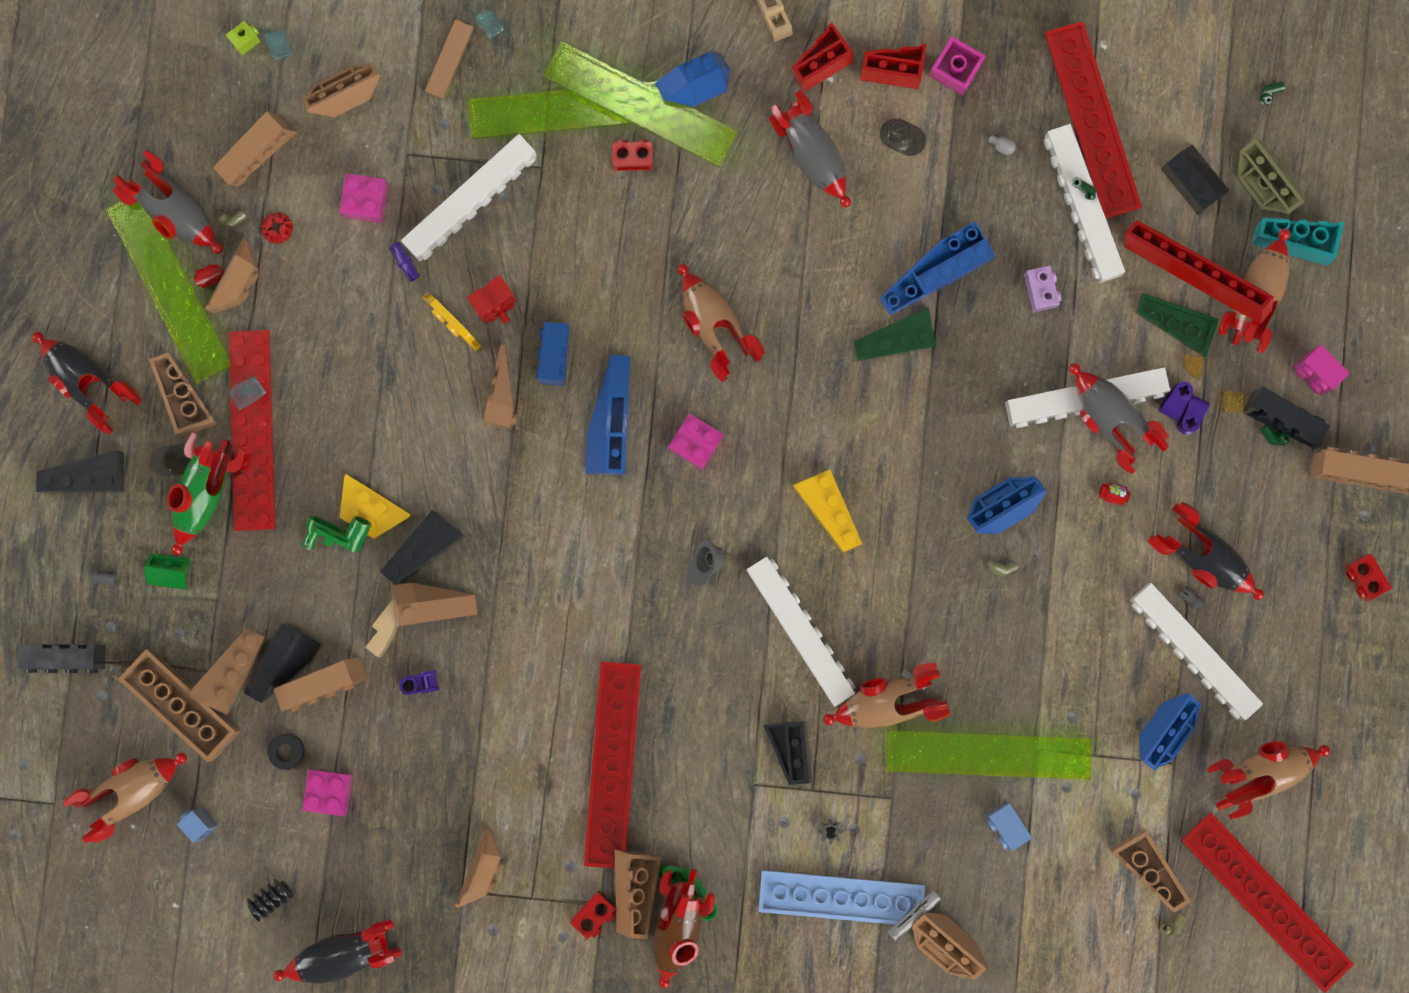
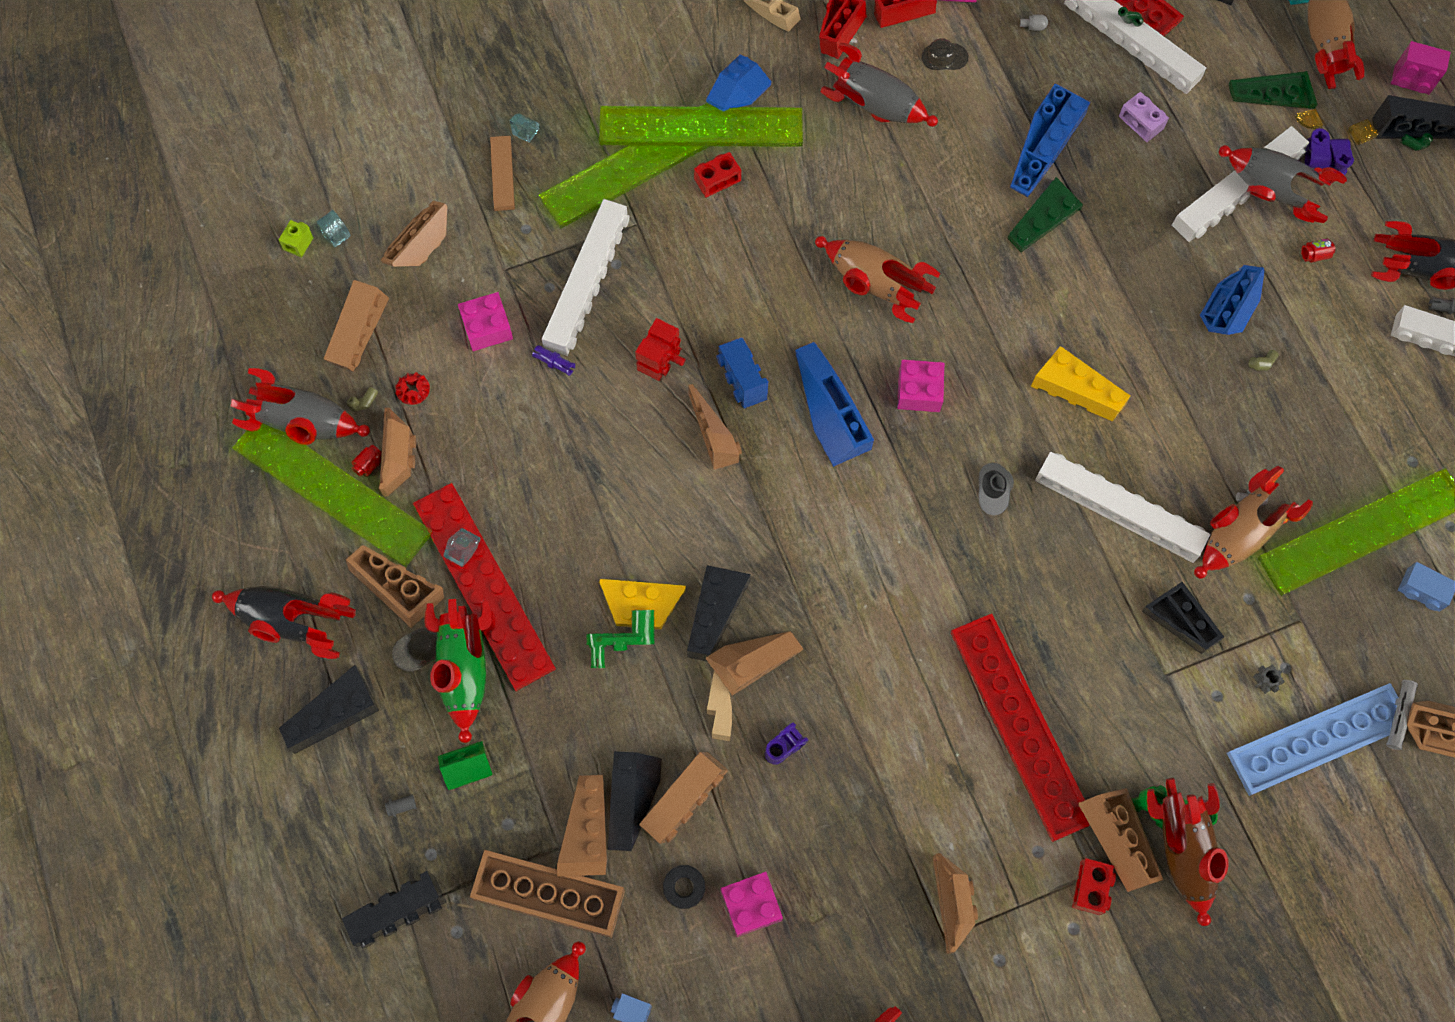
camera: 30 degrees left, 15 degrees down
(453, 324) = (628, 386): yellow wing -> none
(1199, 272) = (1273, 31): red brick -> none

